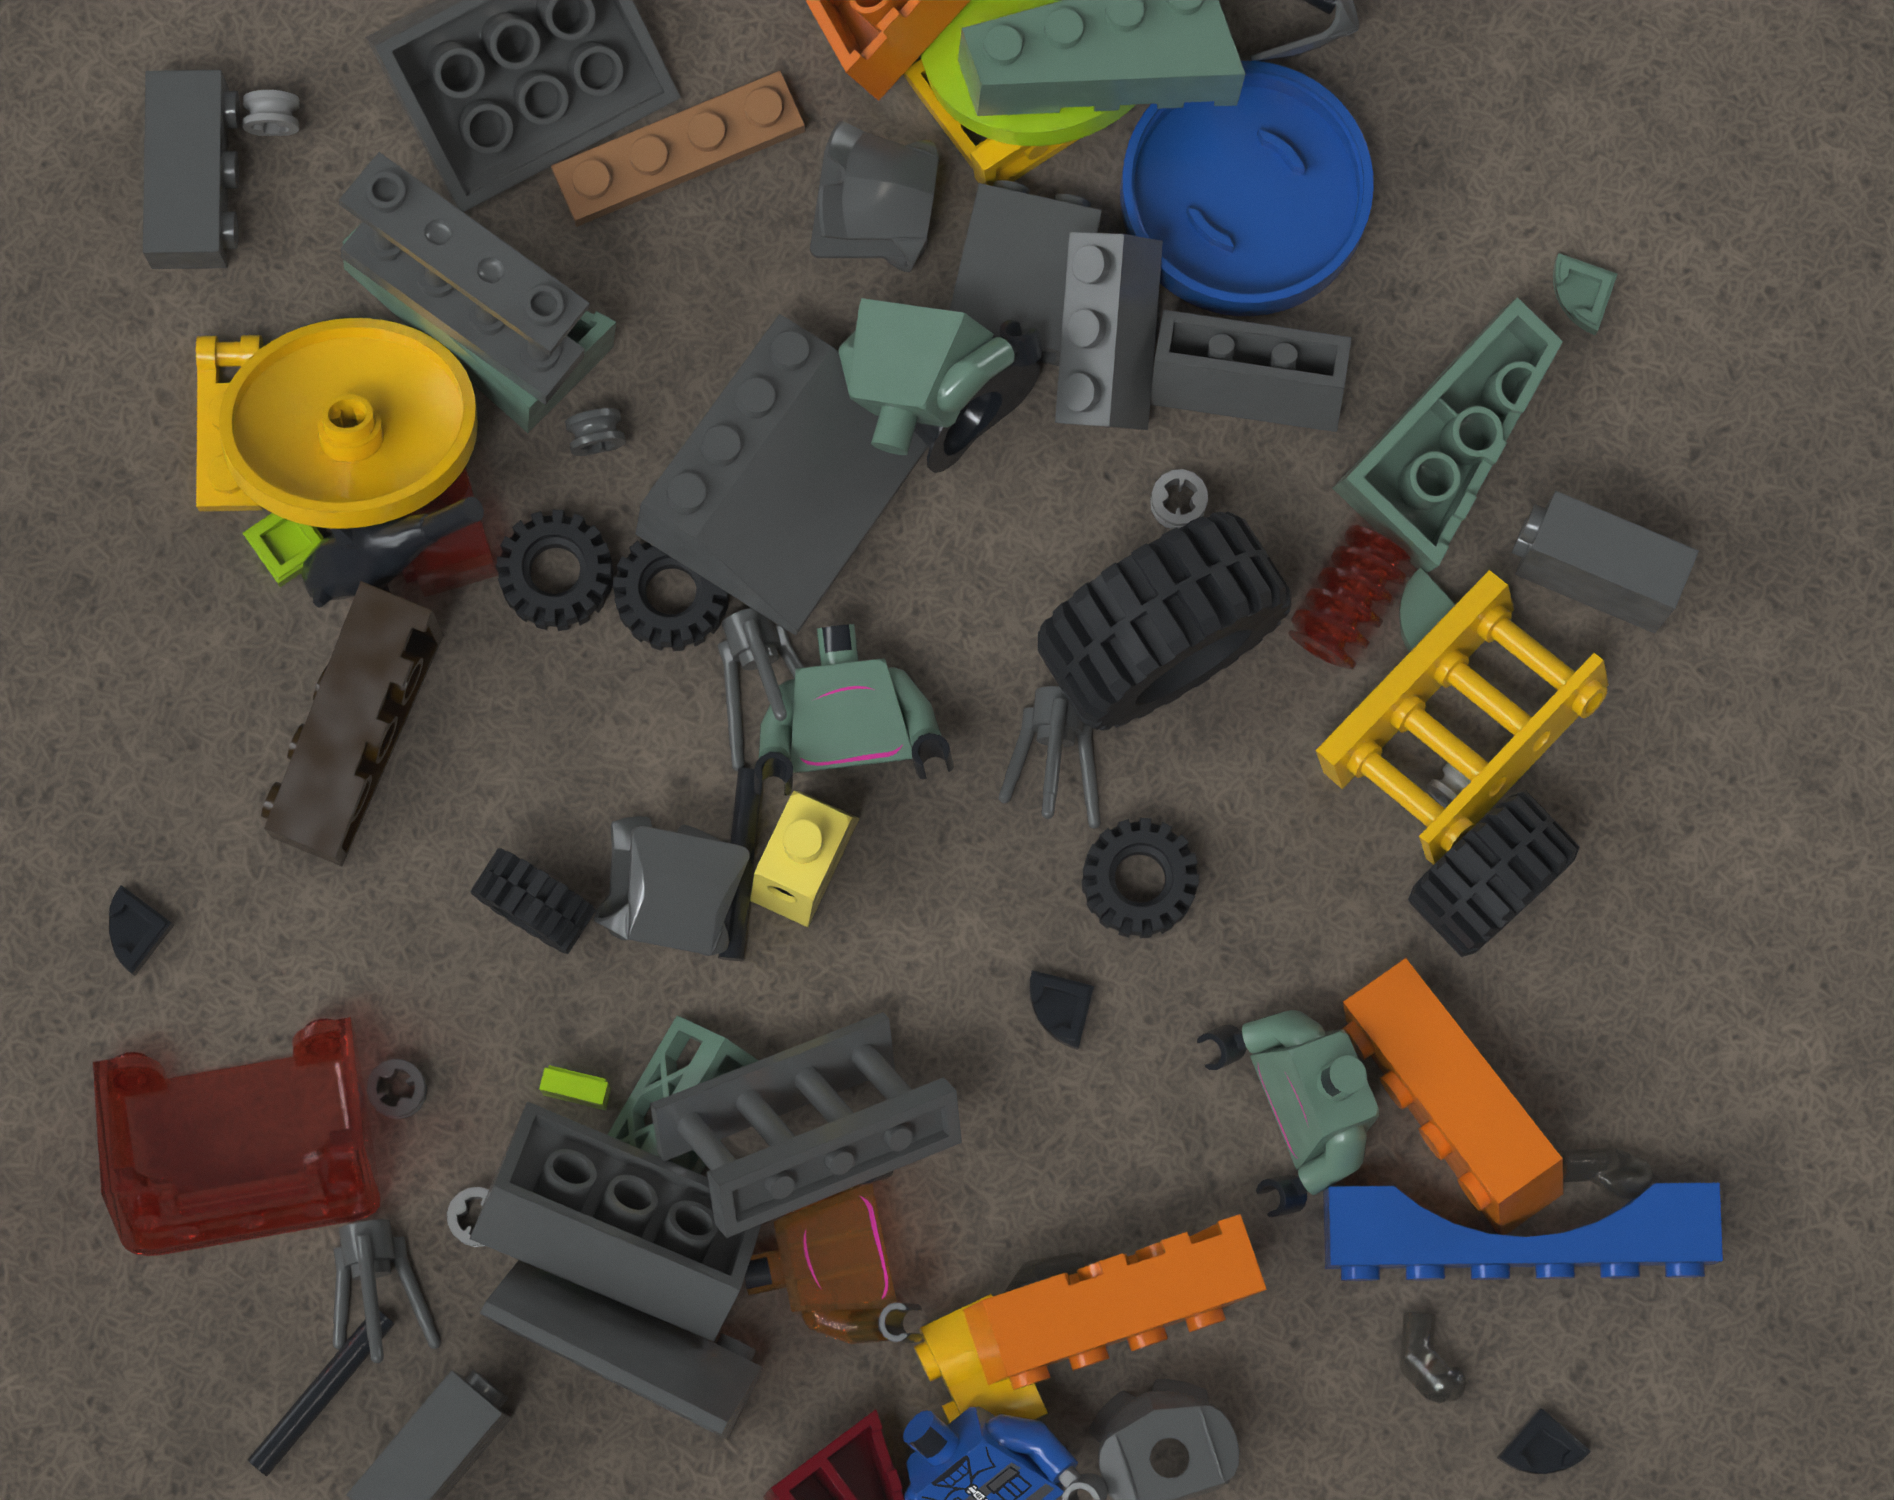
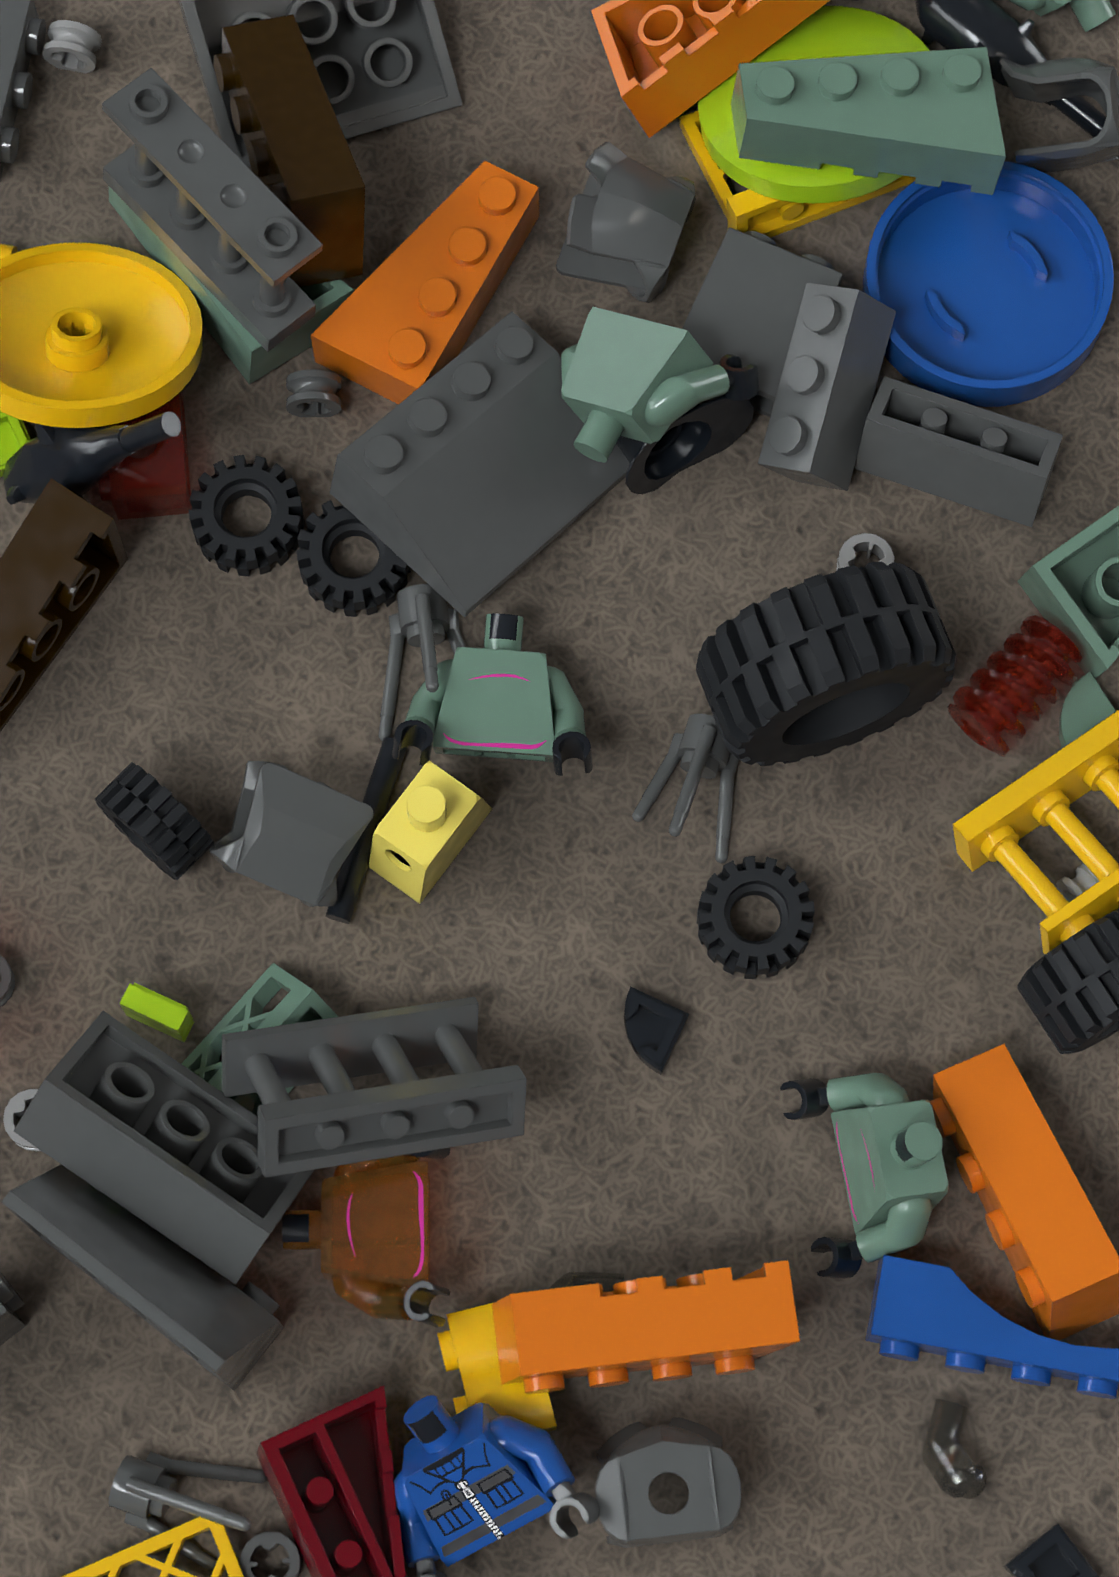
camera: 15 degrees right, 5 degrees down
(526, 178) = (295, 140): none -> dark brown wedge
(678, 148) = (457, 145): medium nougat plate -> none
(688, 312) = (431, 289): none -> orange wedge

